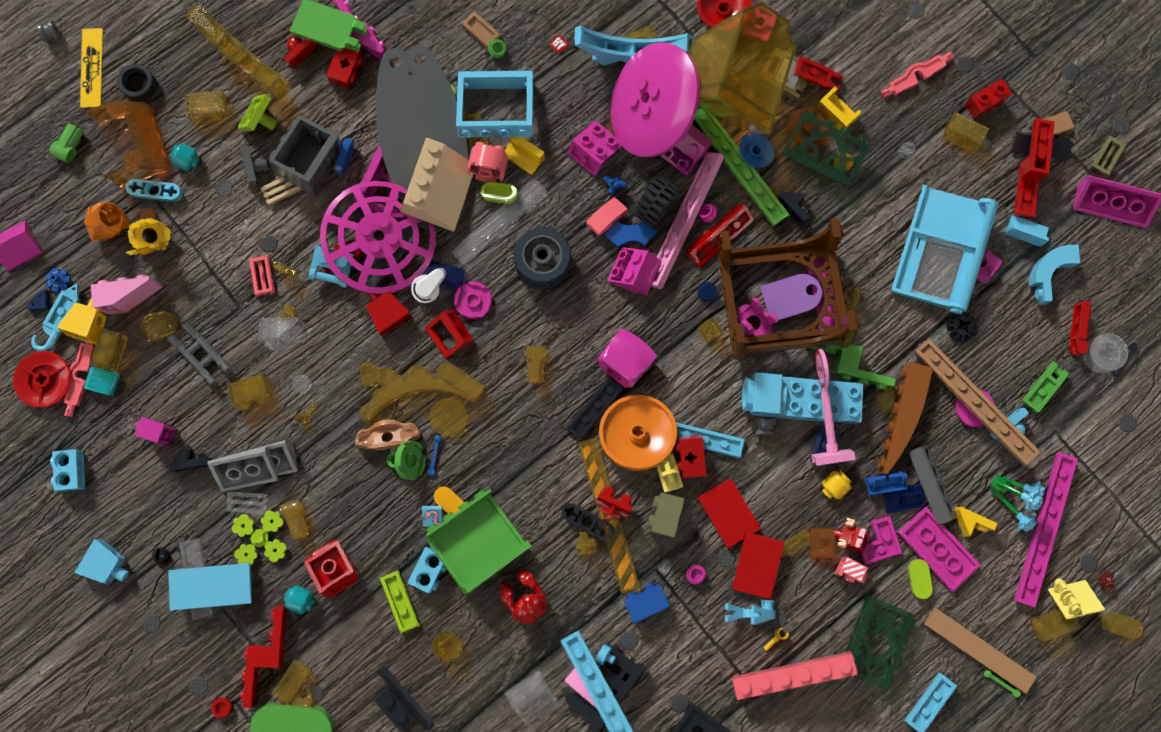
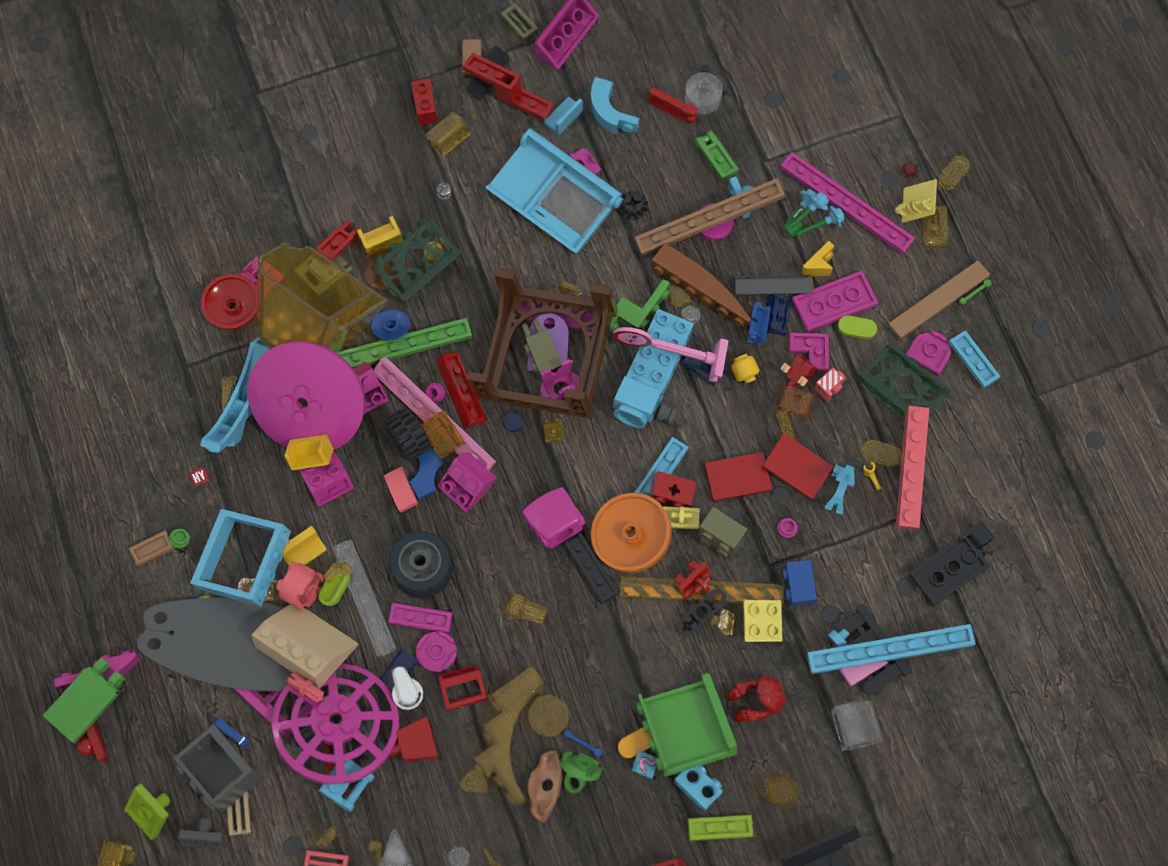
camera: 70 degrees left, 10 degrees down
(240, 56) = (79, 806): clear yellow arch -> none
(345, 77) = (142, 707): red brick -> none
(395, 199) = (305, 687): none -> coral axle
(498, 276) = (420, 618): none -> dark pink tile
(512, 187) = (337, 568): none -> clear yellow arm
(598, 579) = (762, 620): none -> light yellow hinge
(609, 124) = (309, 452): none -> yellow panel
(614, 183) = (370, 470): blue plant -> none
(668, 232) = (443, 435): none -> clear yellow brick
(782, 291) = (541, 349): none -> olive hinge
(790, 202) = (455, 312): black slope -> none
(801, 641) = (882, 453): none -> clear yellow tile
(871, 417) = (691, 314): none -> clear plate
(909, 79) = (374, 163): coral piece -> none
(922, 657) = (930, 351): none -> dark pink tile

